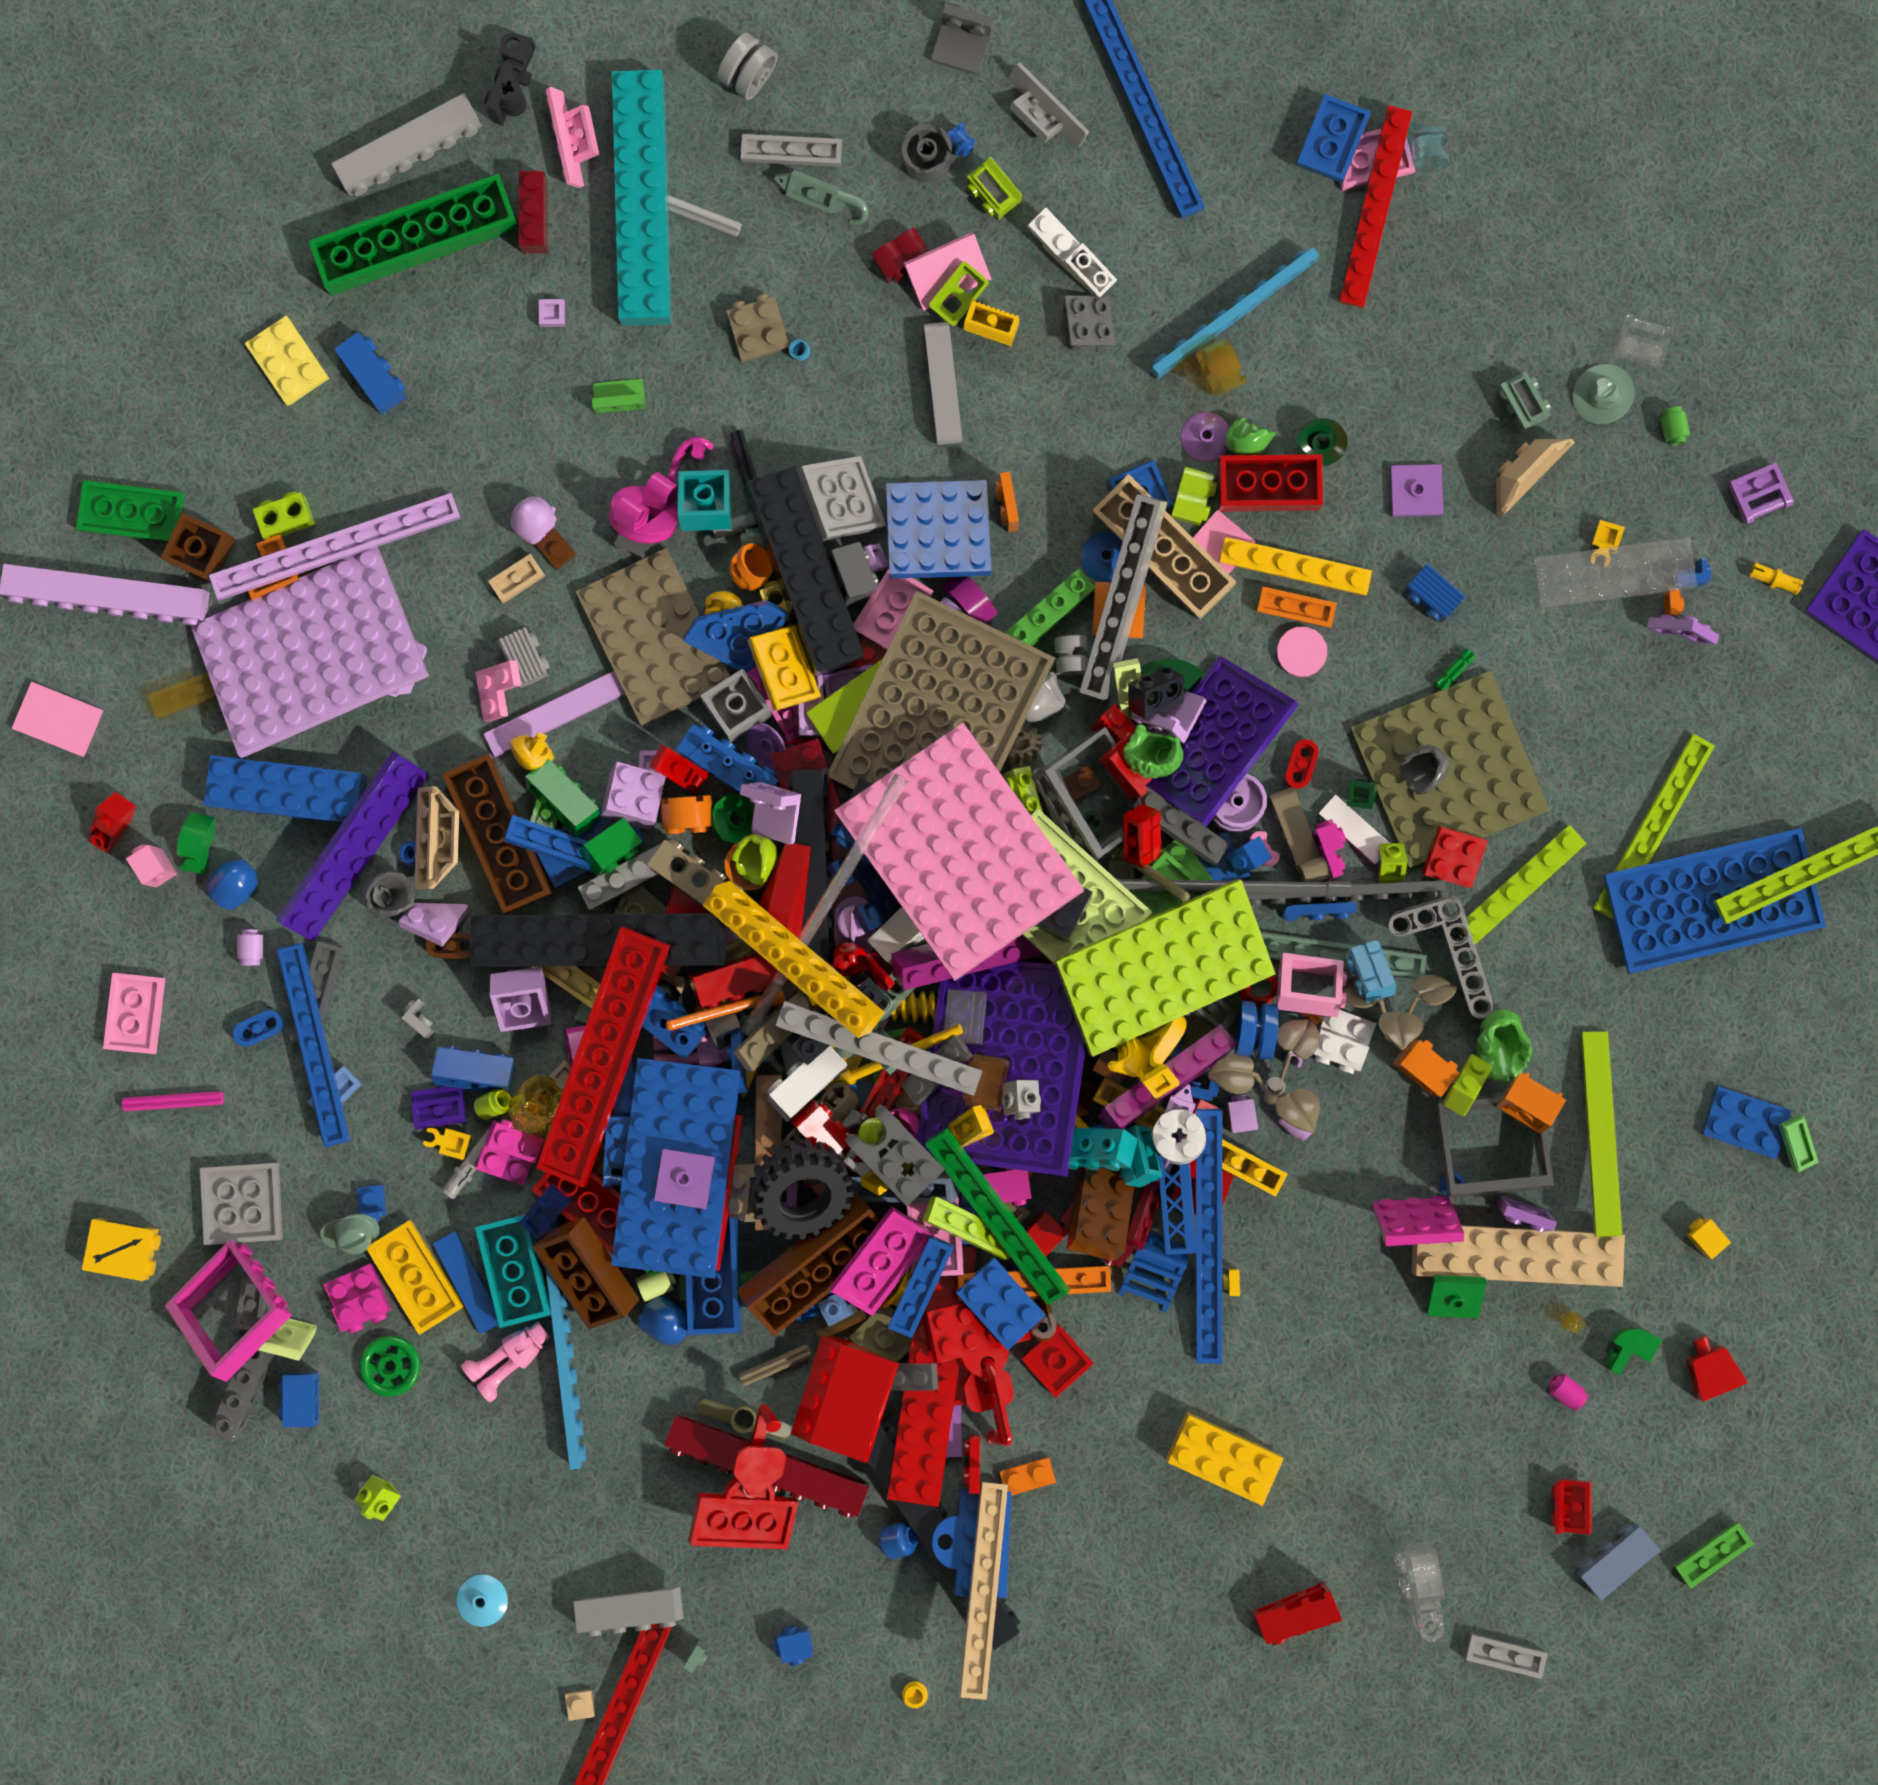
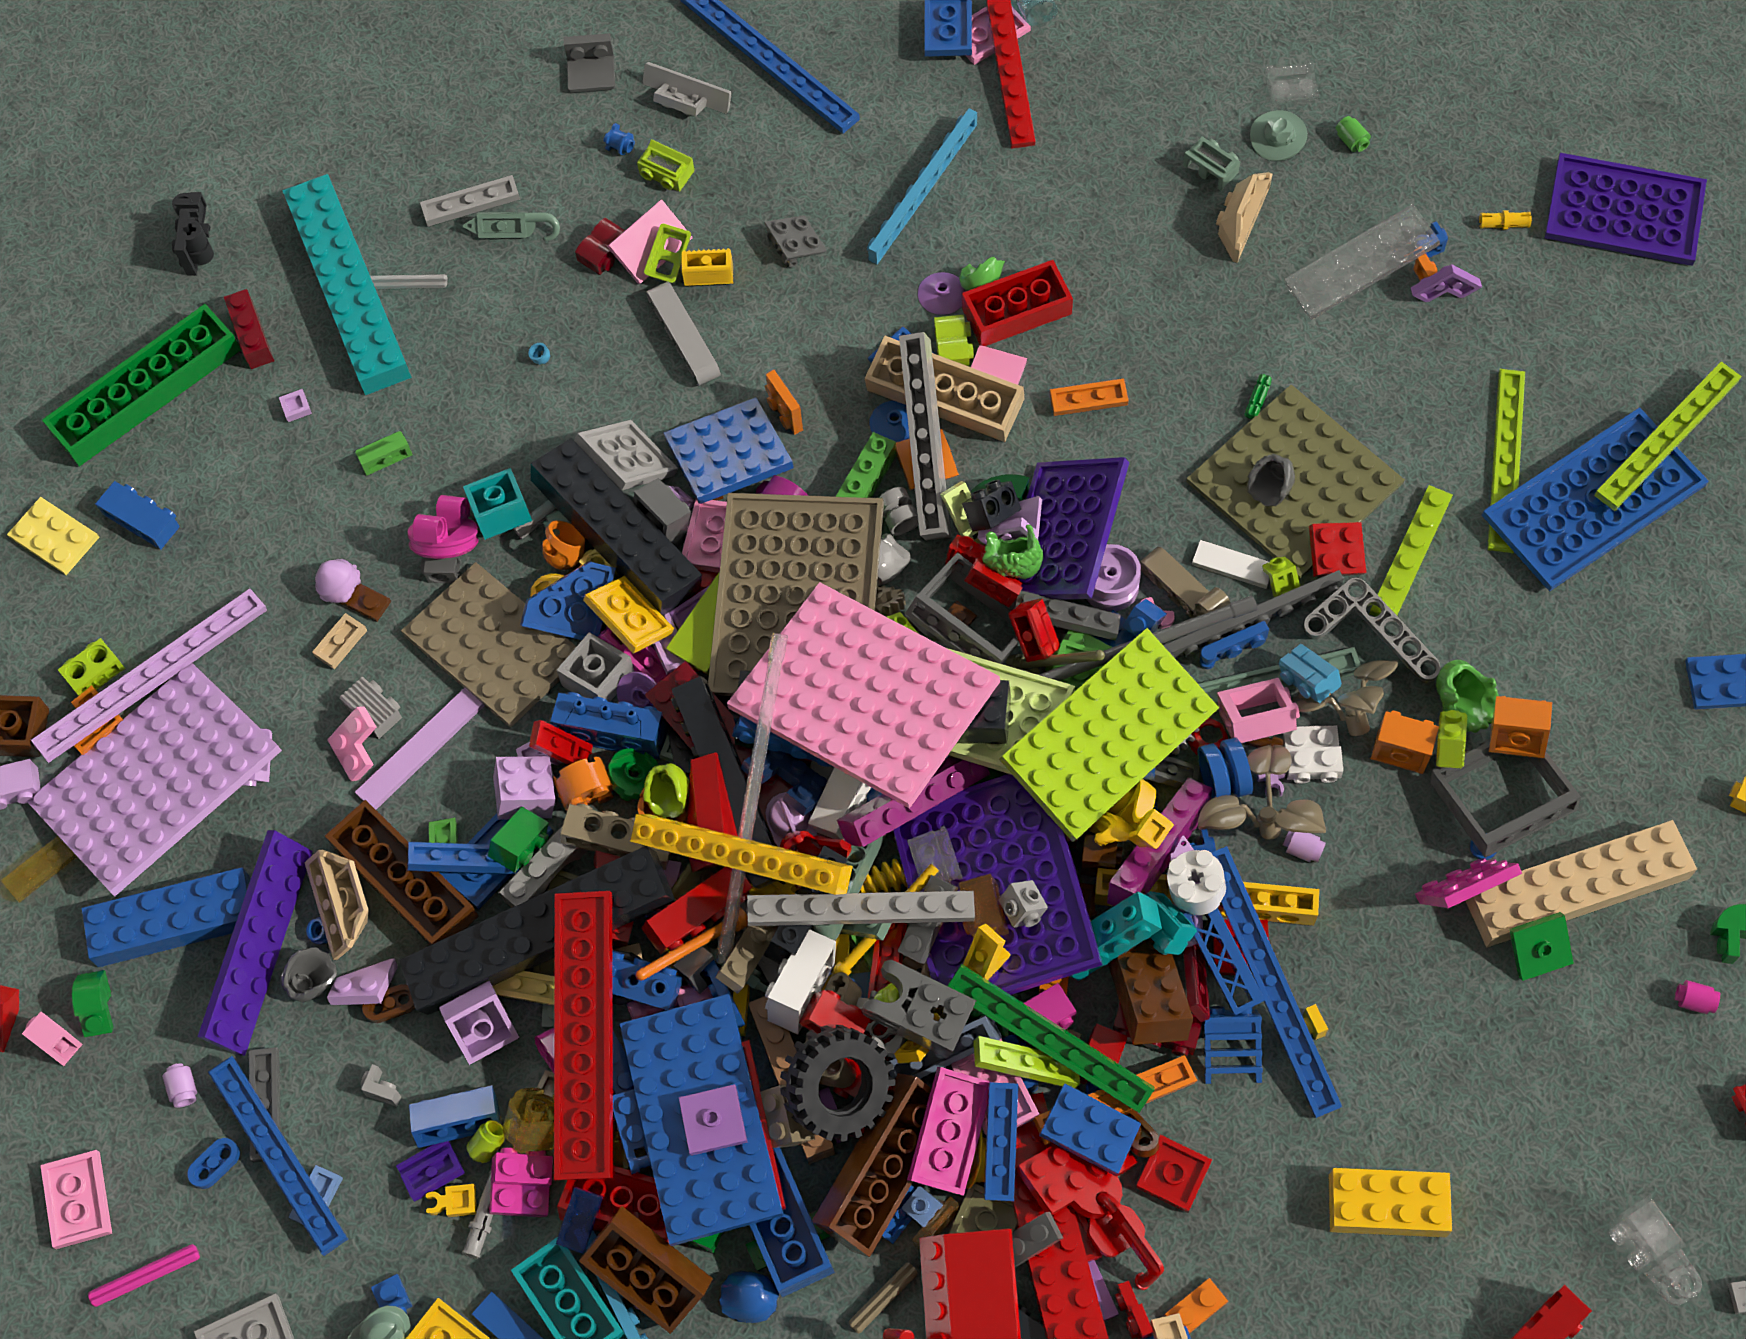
camera: 20 degrees left, 20 degrees down
(232, 883) = (142, 1028): blue hair -> none
(407, 145) = (111, 318): light grey brick -> none
(531, 751) = (408, 788): yellow piece -> none
(563, 798) = (454, 816): brick -> none
(573, 134) = (266, 257): bright pink bracket -> none
(655, 1284) = (724, 1259): yellowish green brick -> none
(698, 445) = (472, 464): dark pink piece -> none
(743, 455) = (519, 459): black axle -> none
(747, 66) = (404, 145): light grey wheel -> none
(757, 328) = (493, 350): dark tan plate -> none
(774, 811) = (668, 734): lavender bracket -> none
(934, 141) = (593, 158): dark grey brick -> none
(1071, 254) = (758, 193): white slope -> none
(1222, 367) = (930, 227): clear yellow brick -> none
(1241, 1114) = (1249, 858): lavender brick -> none
(1295, 566) = (1073, 364): yellow plate -> none
(1301, 651) = (1111, 433): bright pink tile -> none
(1301, 764) = (1156, 527): red plate -> none
(1328, 840) = (1214, 572): dark pink plate -> none
(1333, 446) = (1056, 245): dark green dish -> none
(1362, 793) = (1224, 525): dark green brick -> none
(1416, 490) = (1151, 266): medium lavender plate -> none
(1434, 594) = (1208, 340): blue brick -> none
(1518, 1211) = (1575, 838): medium lavender plate -> none
(1572, 1321) = (1666, 927): clear yellow plate -> none
(1601, 1134) = (1602, 740): lime tile -> none
(1607, 535) = (1338, 236): yellow plate -> none
(1757, 485) = (1451, 152): medium lavender plate -> none

